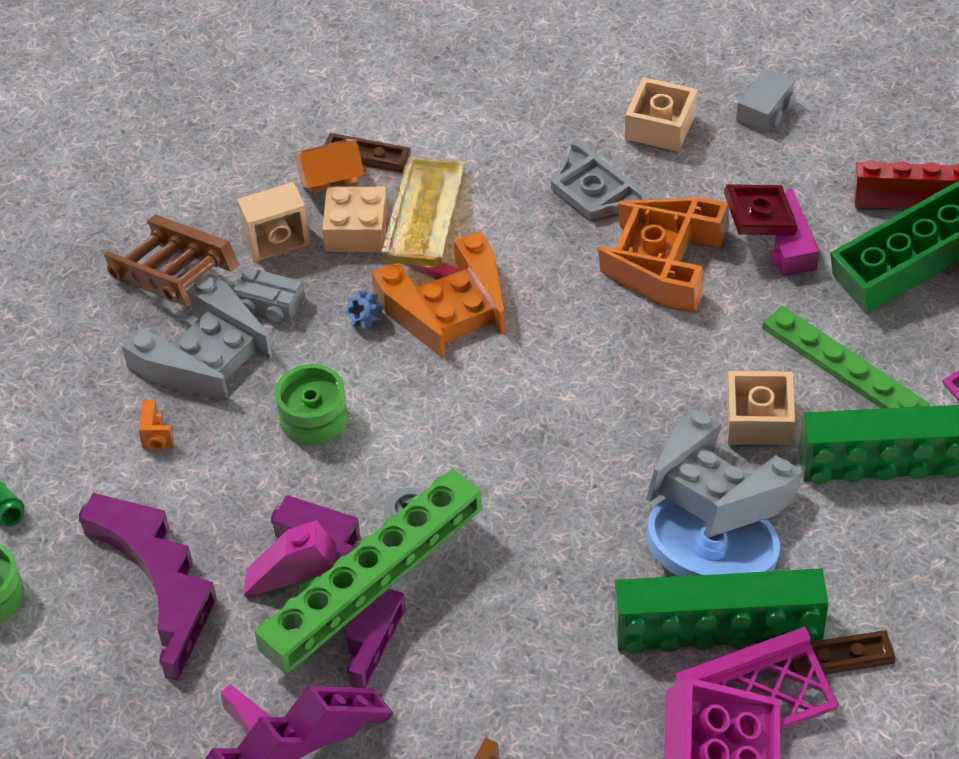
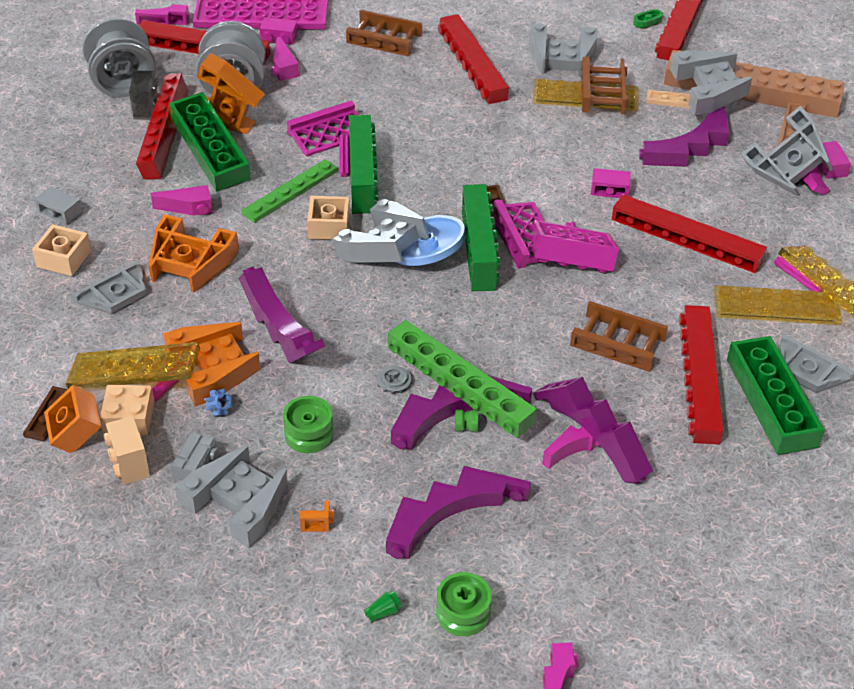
camera: 95 degrees left, 5 degrees down
(174, 238) = (142, 497): dark orange fence -> none
(291, 558) = (448, 426): dark pink slope -> none
(546, 340) = (266, 306): none -> magenta arch
(760, 209) = (173, 201): dark red tile -> none

